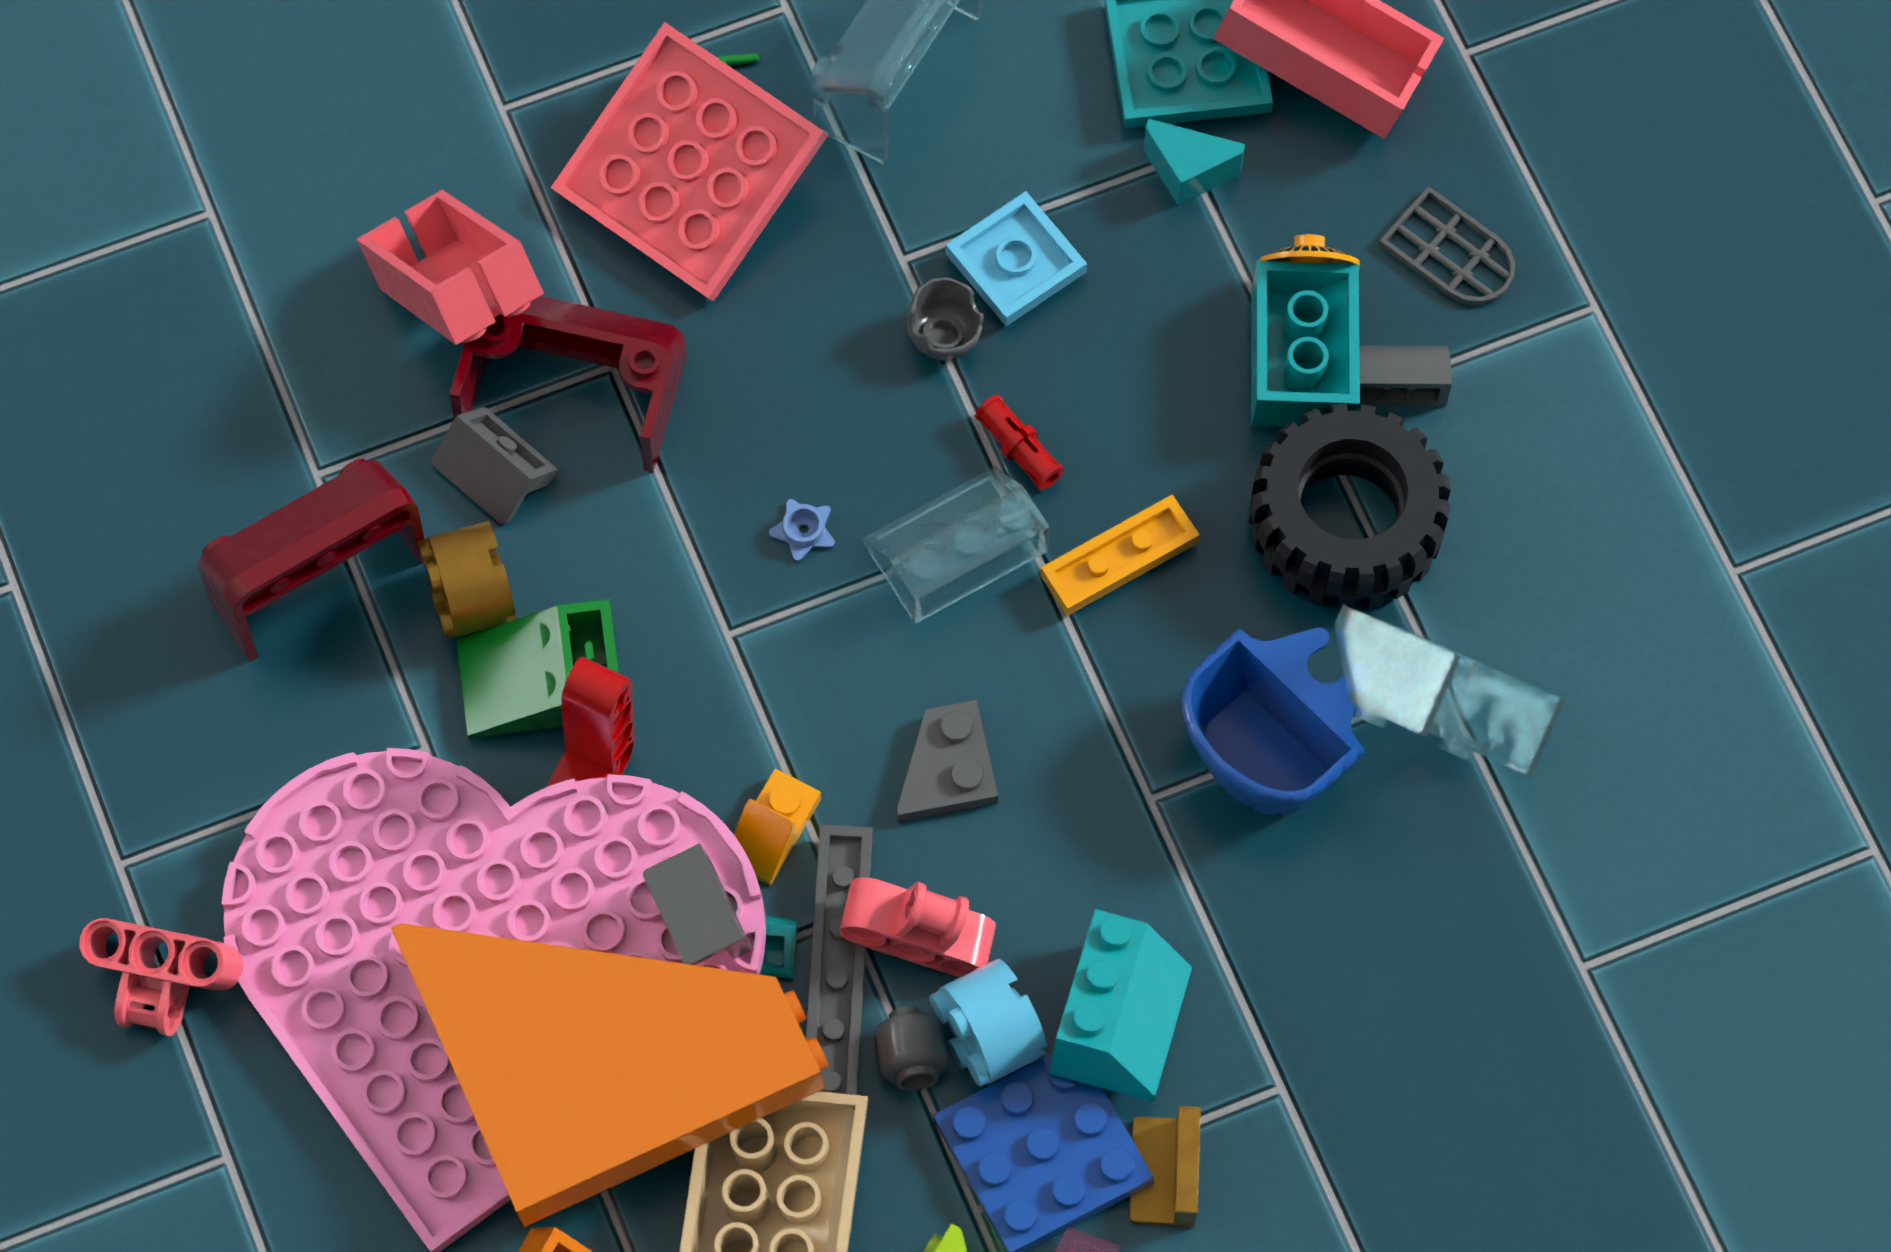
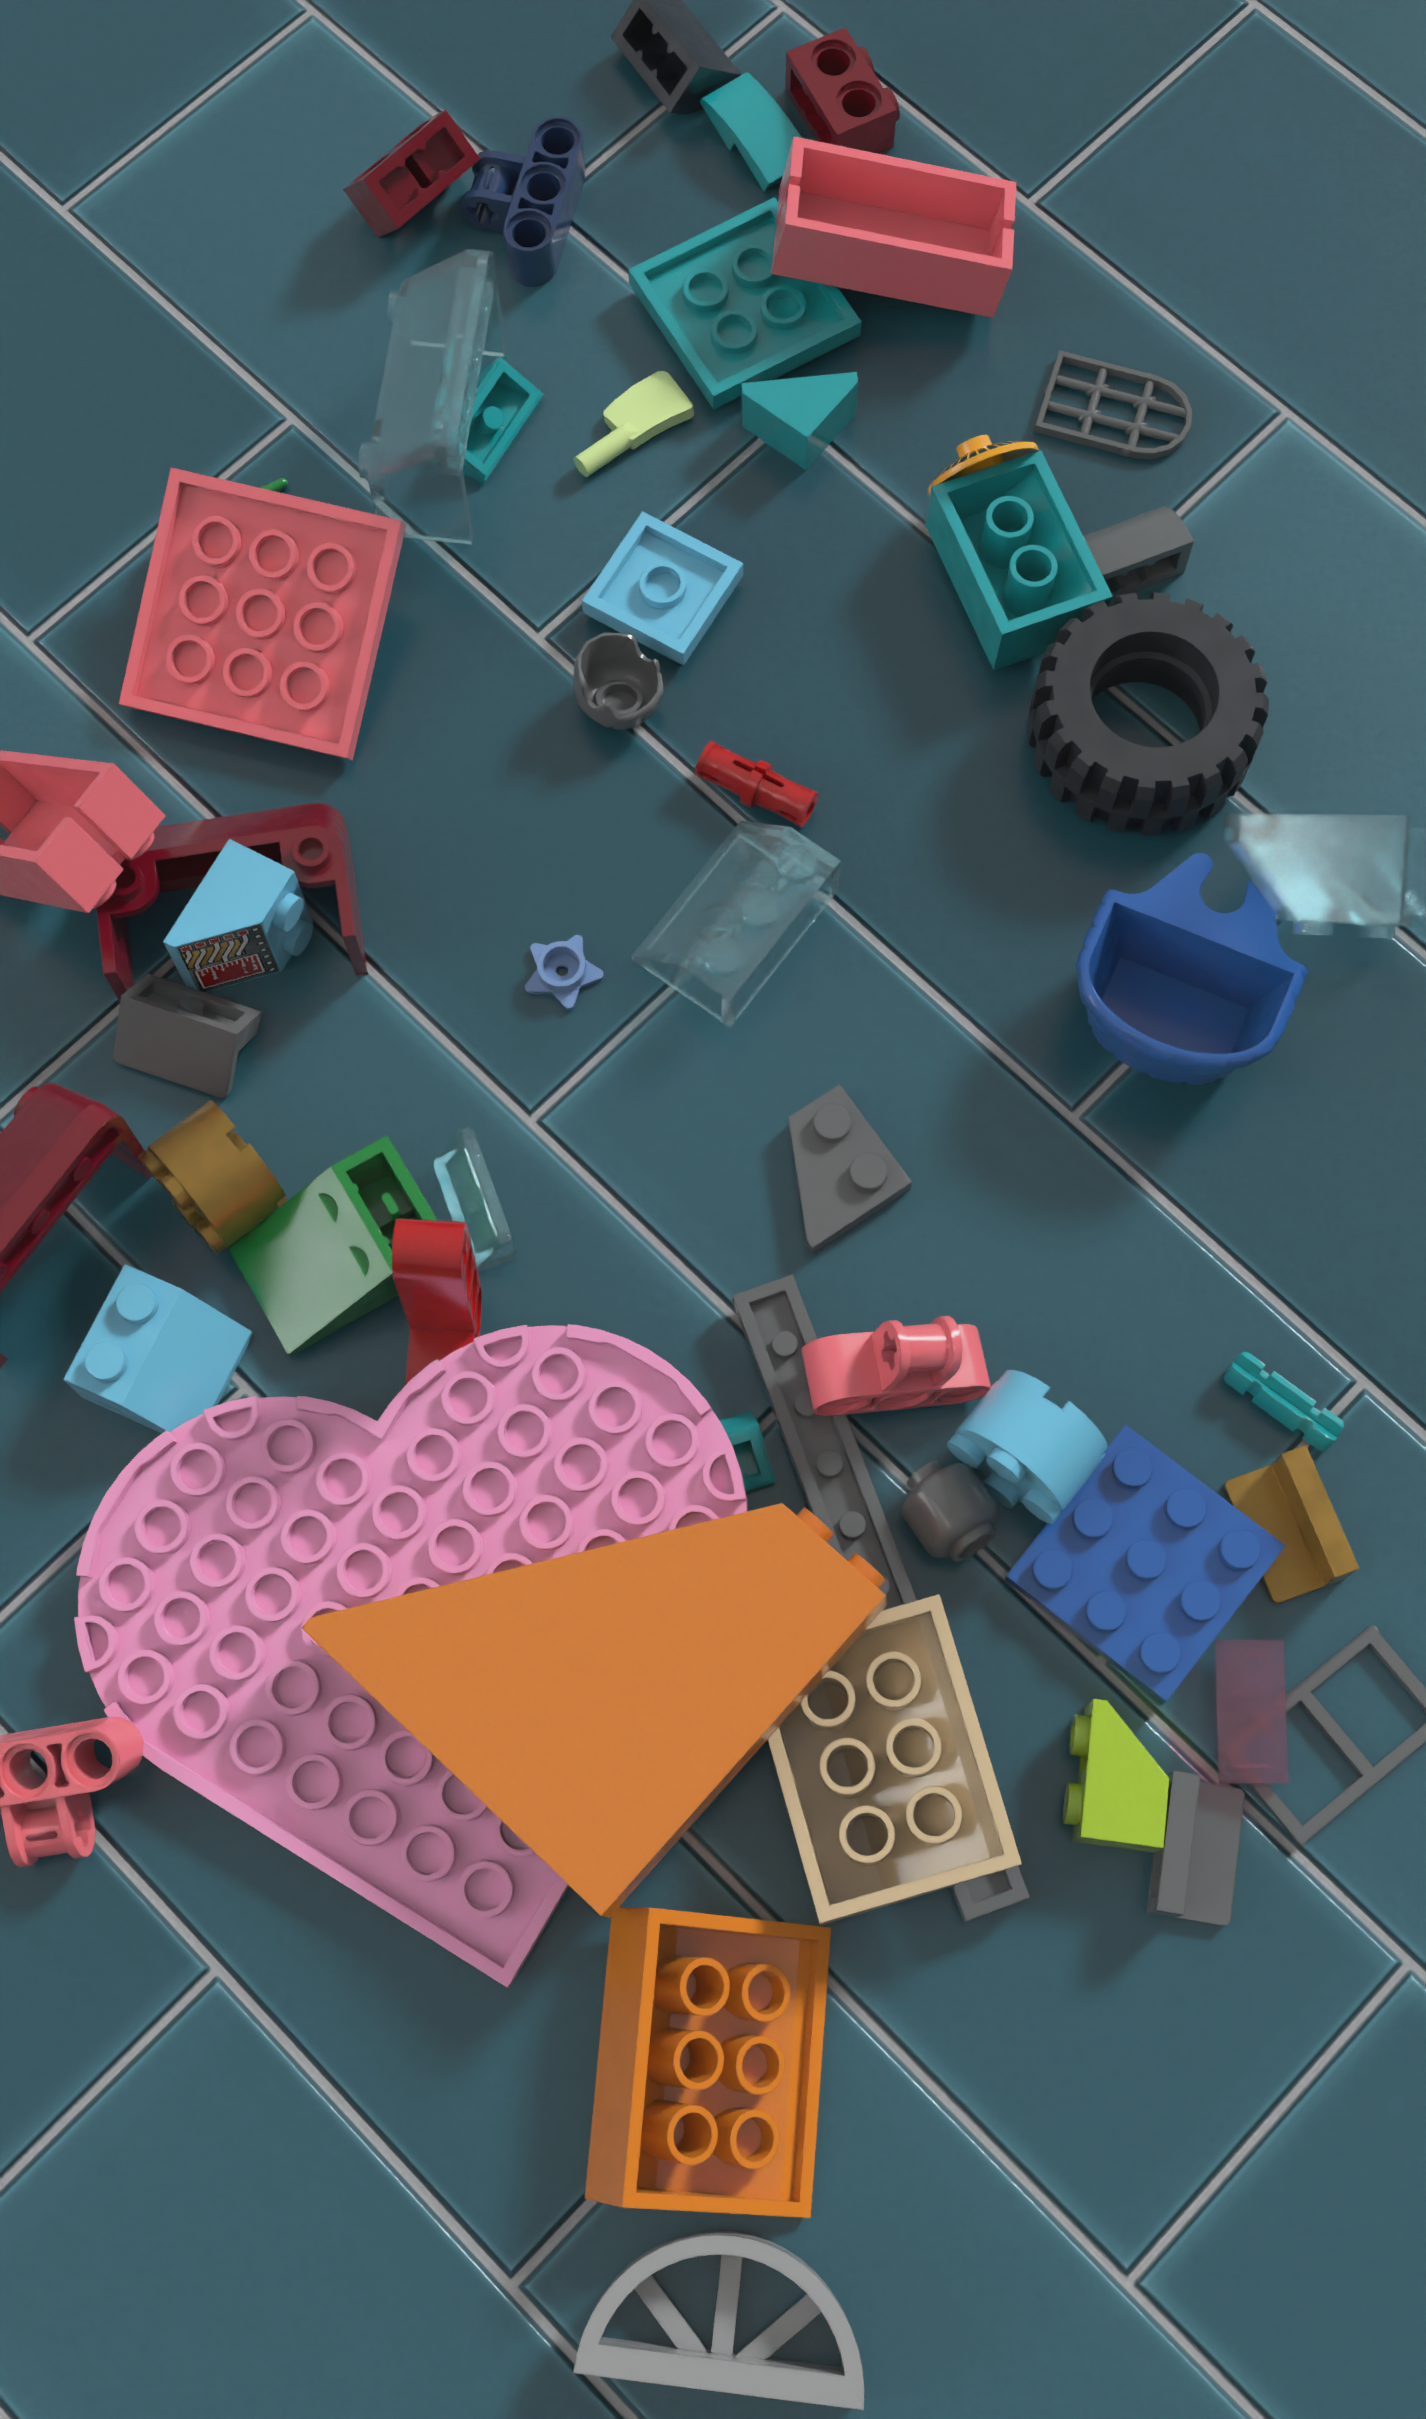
camera: 20 degrees left, 5 degrees up
(370, 694) = (157, 1353): none -> medium azure slope
(569, 395) = (239, 922): none -> medium azure slope
(657, 678) = (474, 1199): none -> clear light blue slope
(696, 907) = (649, 1457): dark grey panel -> none
(775, 823) = (679, 1311): light orange slope -> none
(944, 68) = (499, 412): none -> teal slope
(1059, 111) = (635, 418): none -> yellowish green piece
(1119, 555) = (920, 863): light orange plate -> none
(1121, 1008) = (1161, 1369): teal slope -> none
(1208, 1075) = (1284, 1401): none -> teal axle

